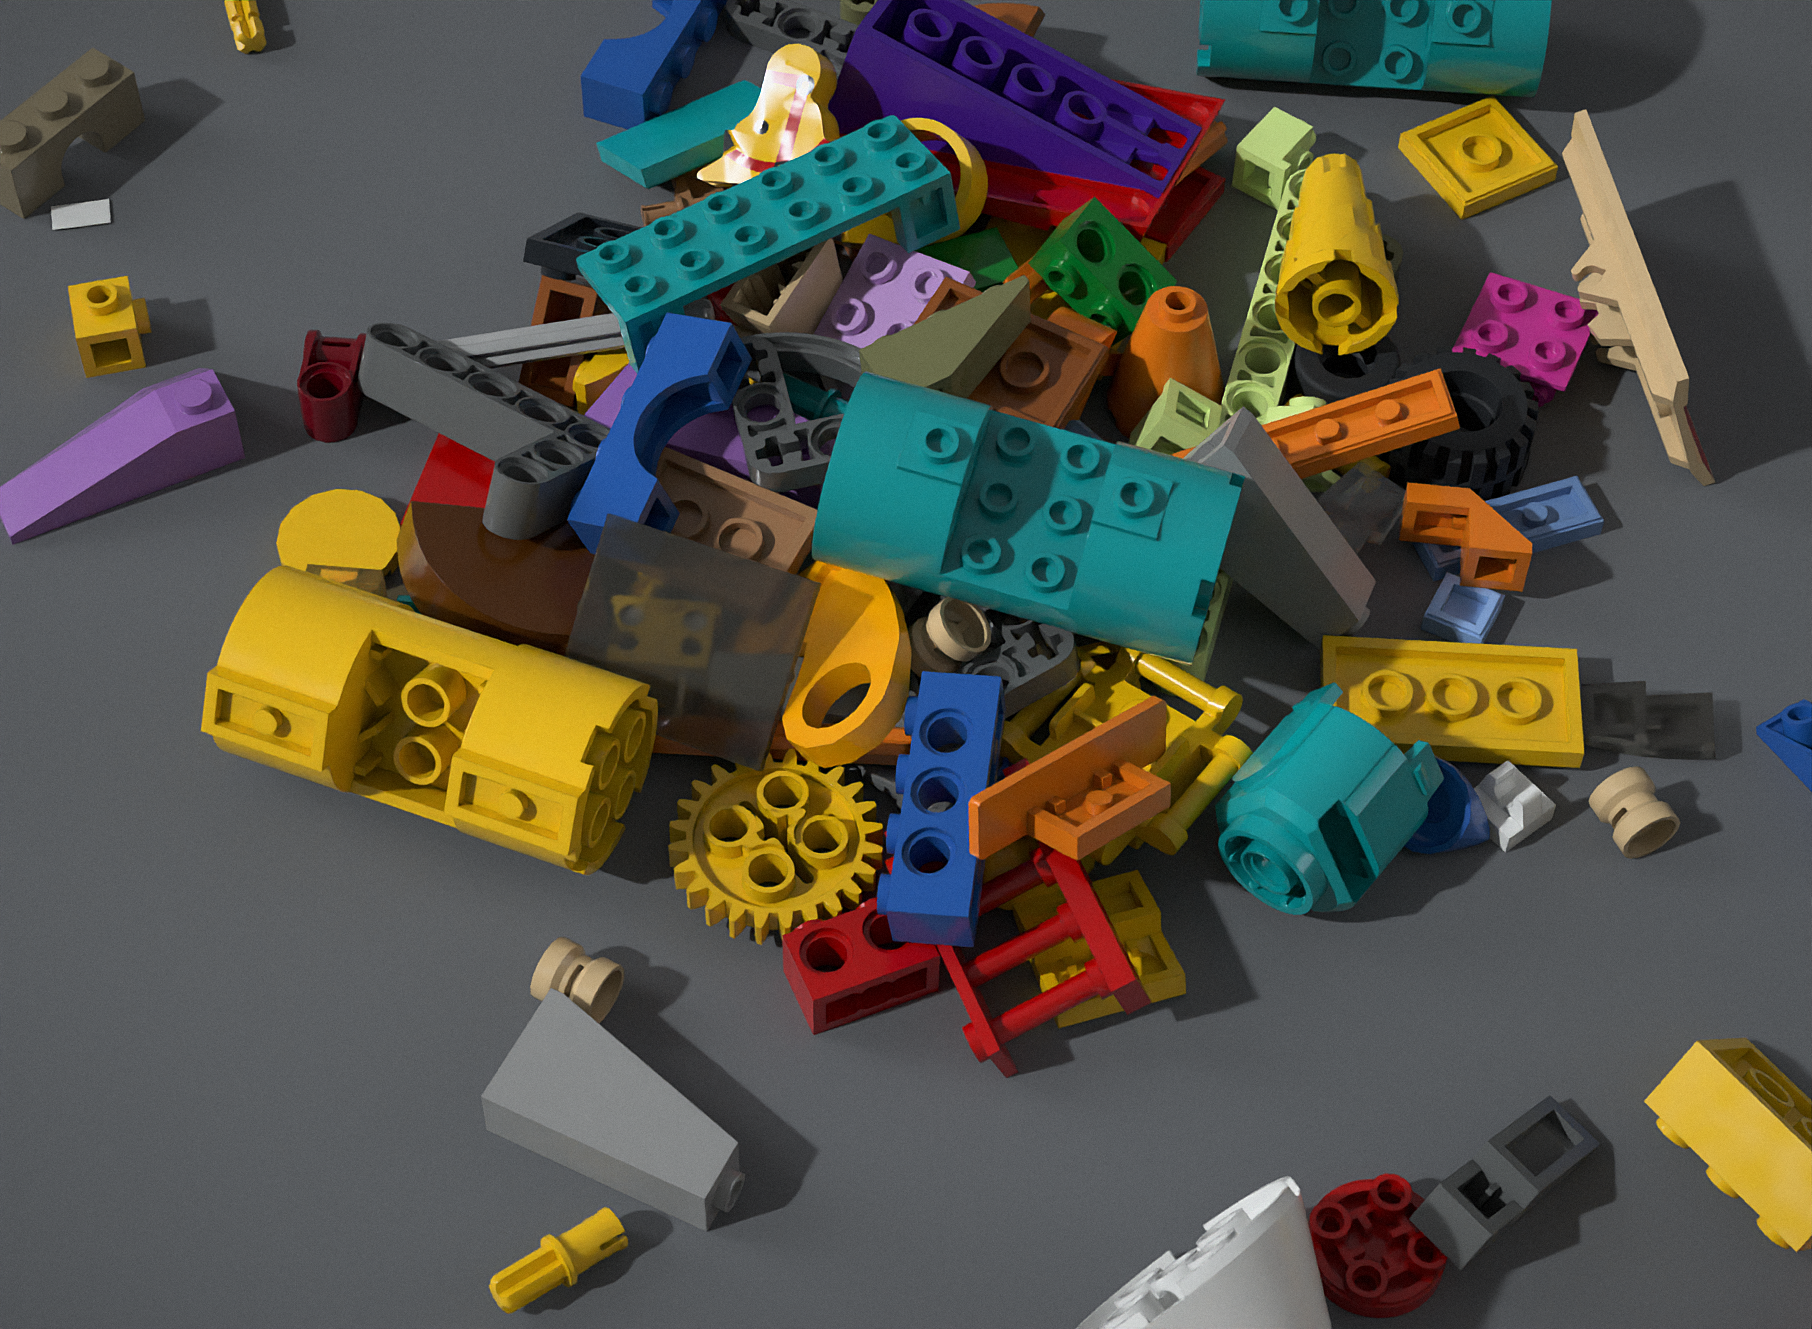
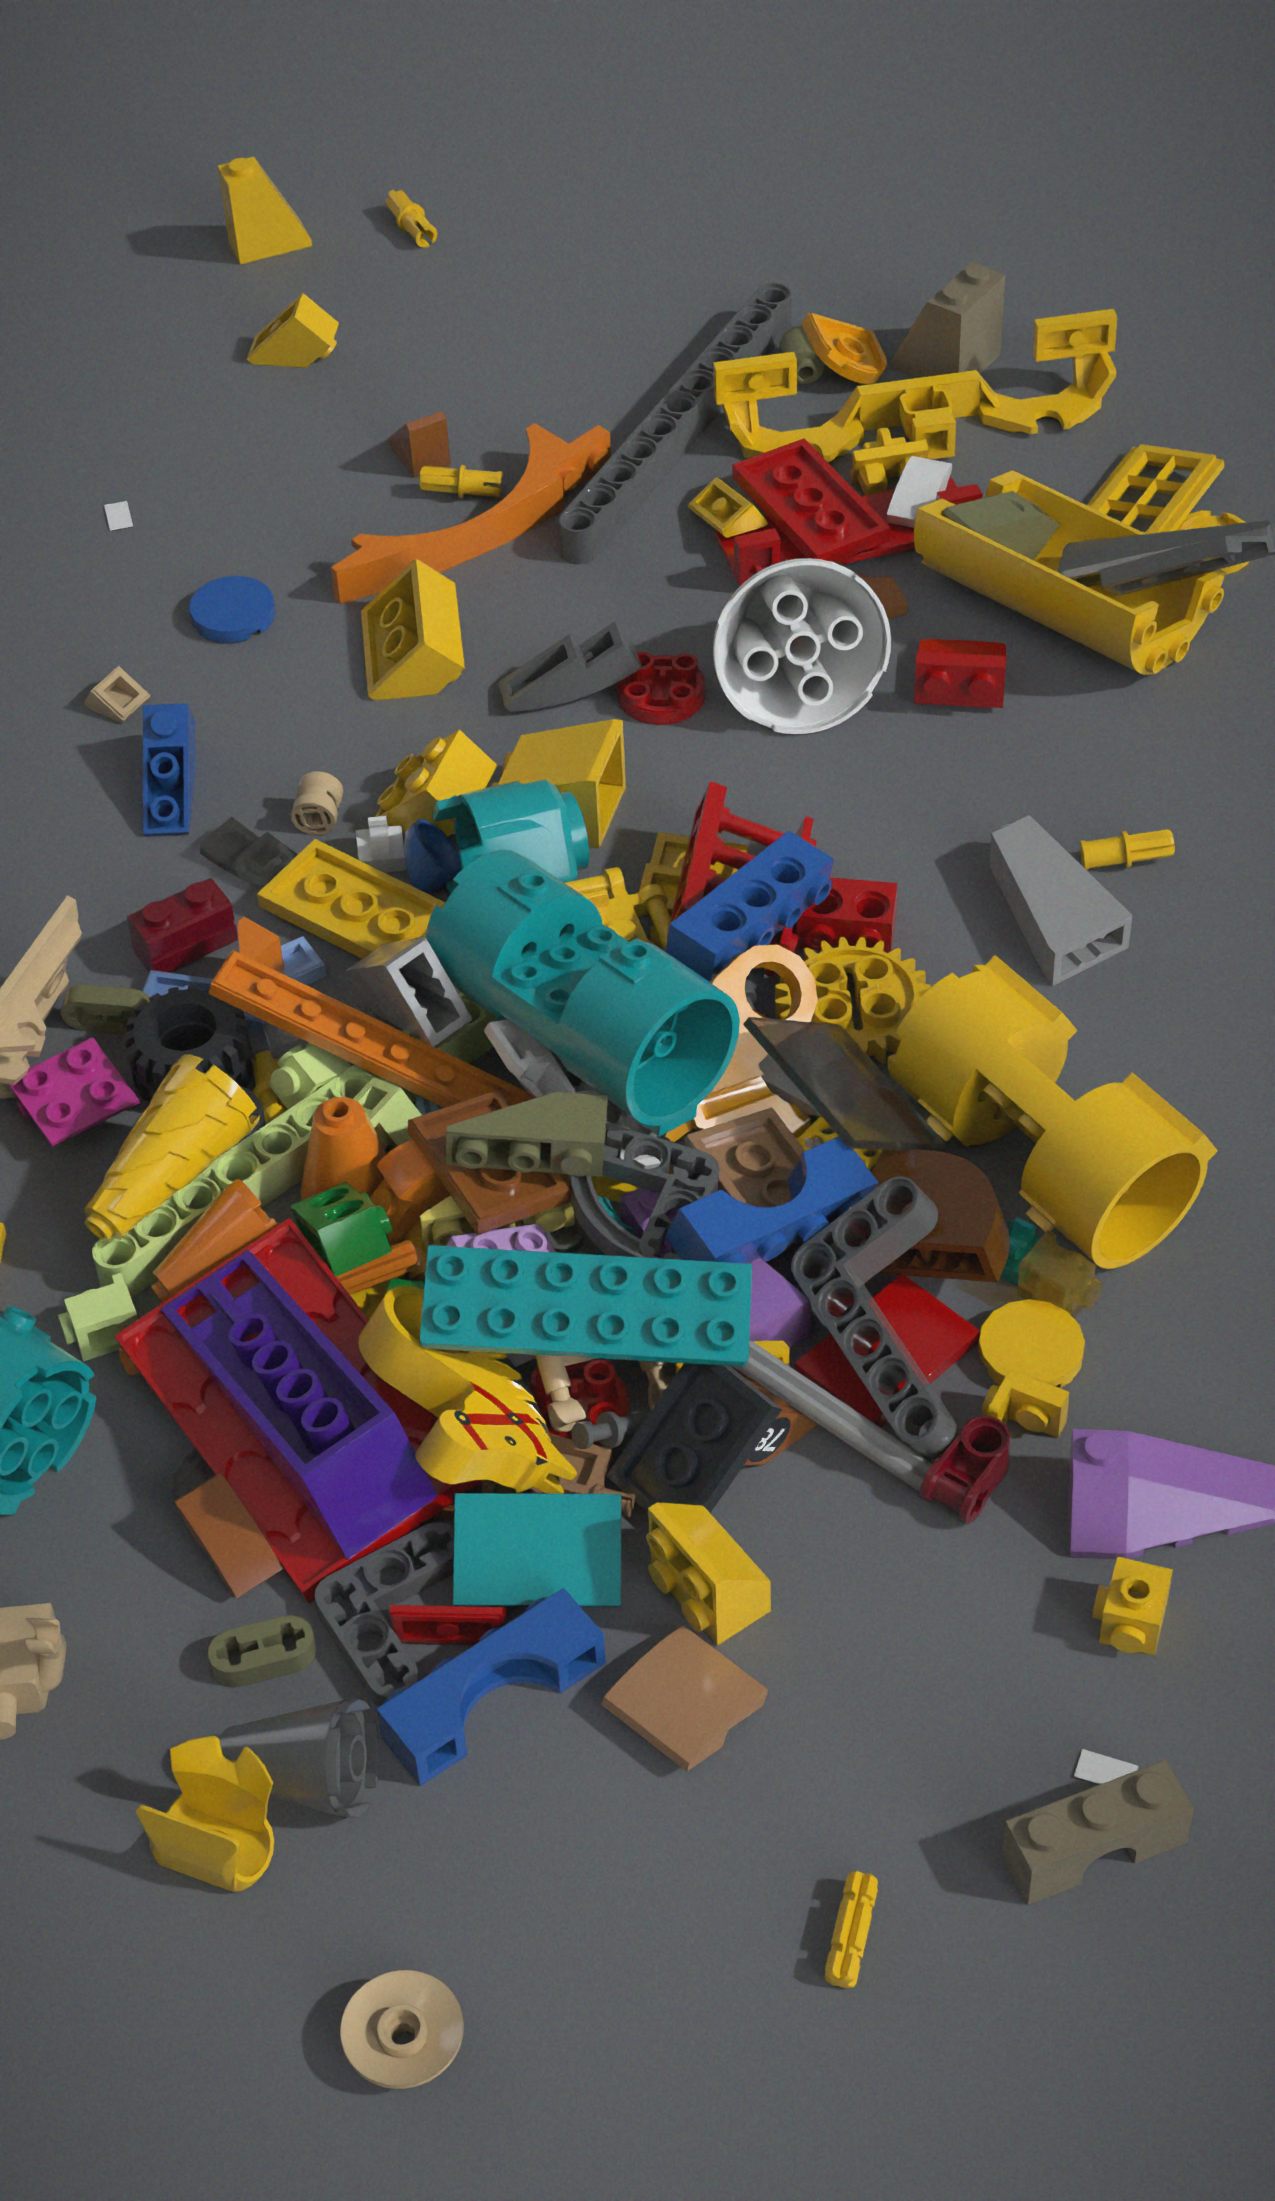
camera: 145 degrees left, 5 degrees down
(308, 464) = (1028, 1402): none -> yellow bracket
(486, 100) = (684, 1697): none -> medium nougat slope
(525, 164) = (705, 1570): none -> yellow slope
(583, 980) = (1037, 974): tan wheel -> none
(732, 59) = (445, 1623): none -> red slope
(1079, 791) = (667, 853): orange bracket -> none
(1216, 247) = (220, 1233): none -> orange cone
(1356, 969) = (578, 760): none -> yellow slope
(1509, 898) = (438, 773): none -> yellow slope
(1597, 447) = (101, 1007): none -> olive beam
(1613, 567) = (182, 927): none -> dark red brick

